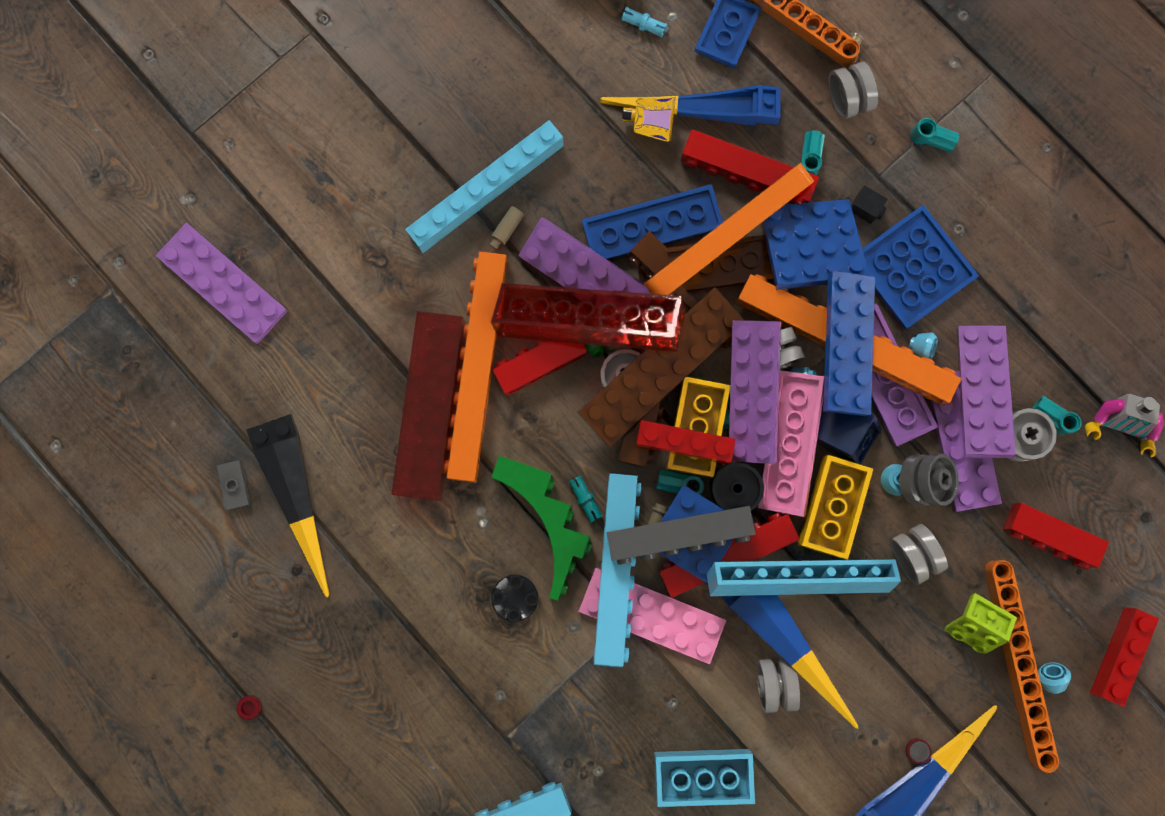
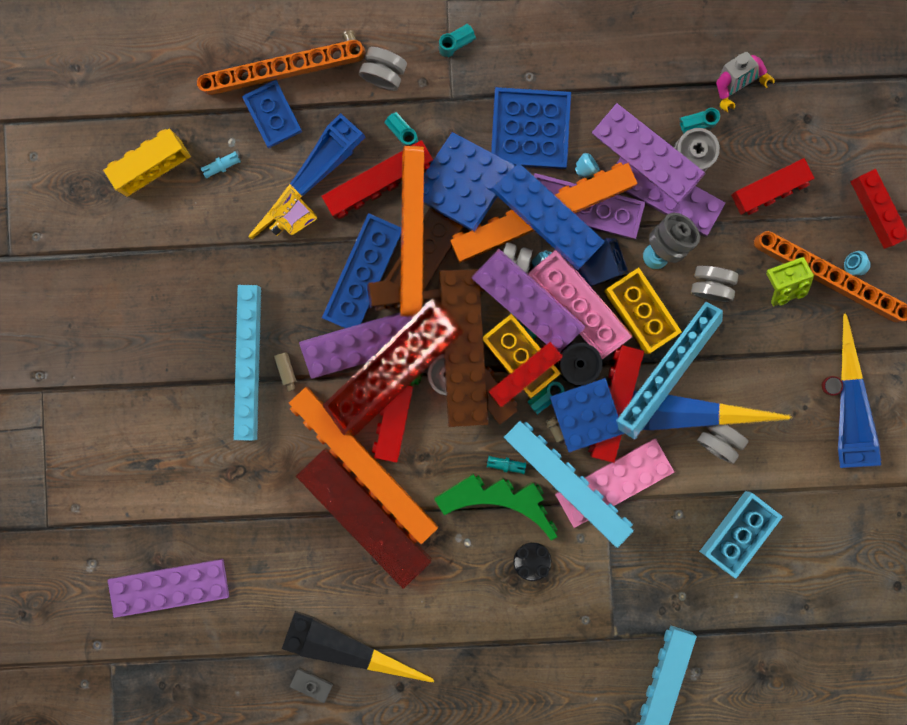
camera: 55 degrees left, 5 degrees up
(681, 533) = (580, 426): dark grey brick -> none
(869, 205) = (466, 122): black brick -> none

